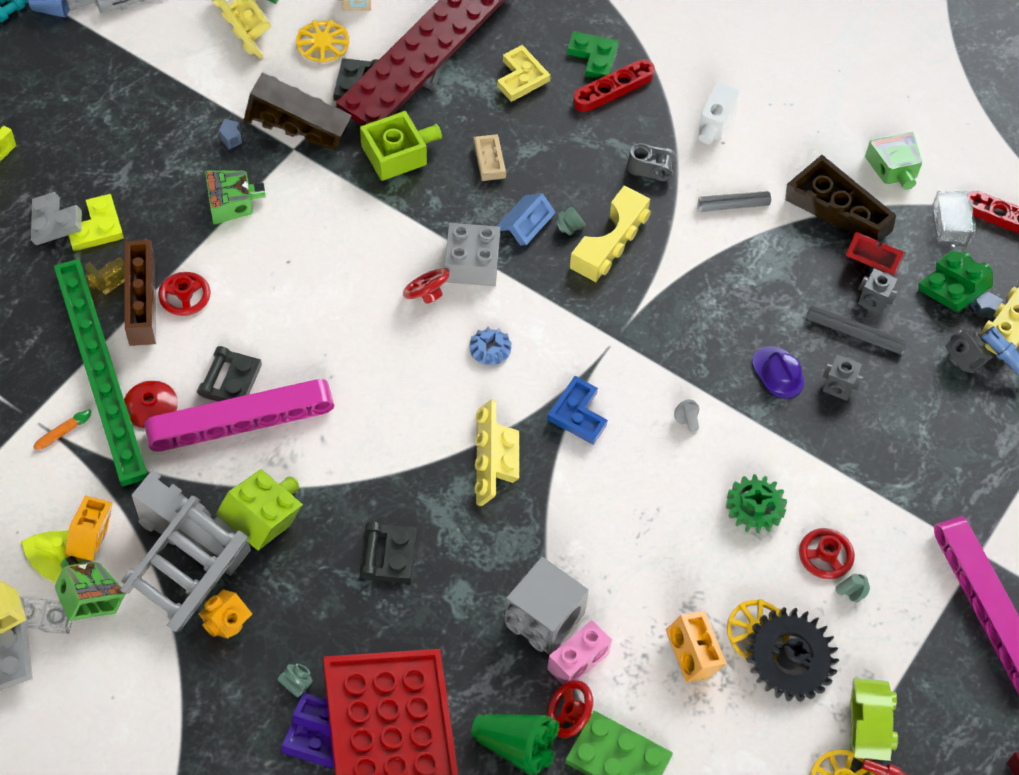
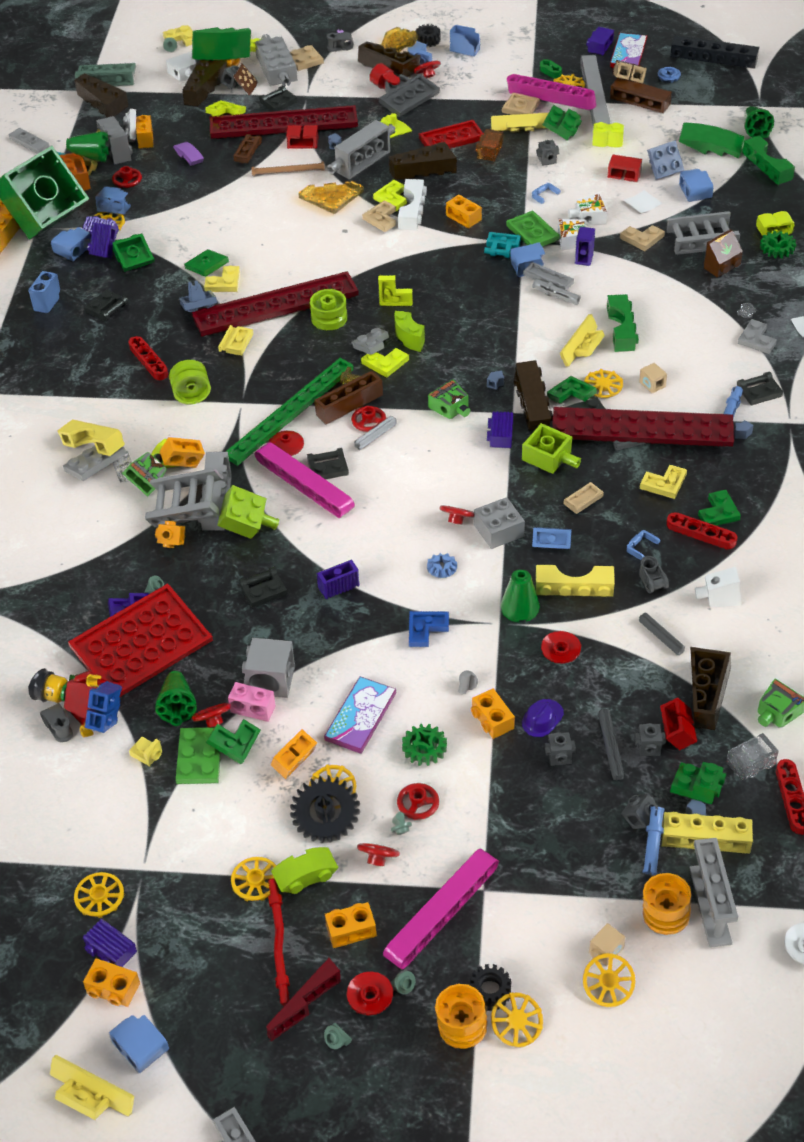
camera: 65 degrees right, 10 degrees down
(70, 171) = (409, 331): none -> lime brick
(78, 419) = (241, 417): orange piece -> none
(216, 299) = (375, 432): none -> axle
(309, 69) = (571, 387): none -> green plate
(322, 172) = (501, 429): none -> dark purple brick
(446, 460) = (338, 579): none -> dark purple brick
(495, 453) = (366, 603): light yellow bracket -> none
(570, 221) = (565, 557): sand green plate -> none
(586, 151) = (636, 539): none -> medium blue piece
(606, 297) = (520, 598): none -> green cone
(635, 703) = (234, 745): none -> green plate
(665, 548) = (360, 715): none -> tile
(702, 291) = (561, 647): none -> red dish
(752, 407) = (490, 708): none -> light orange brick
(888, 632) = (377, 853): none -> red piece
(975, 710) = (352, 929): none -> light orange brick

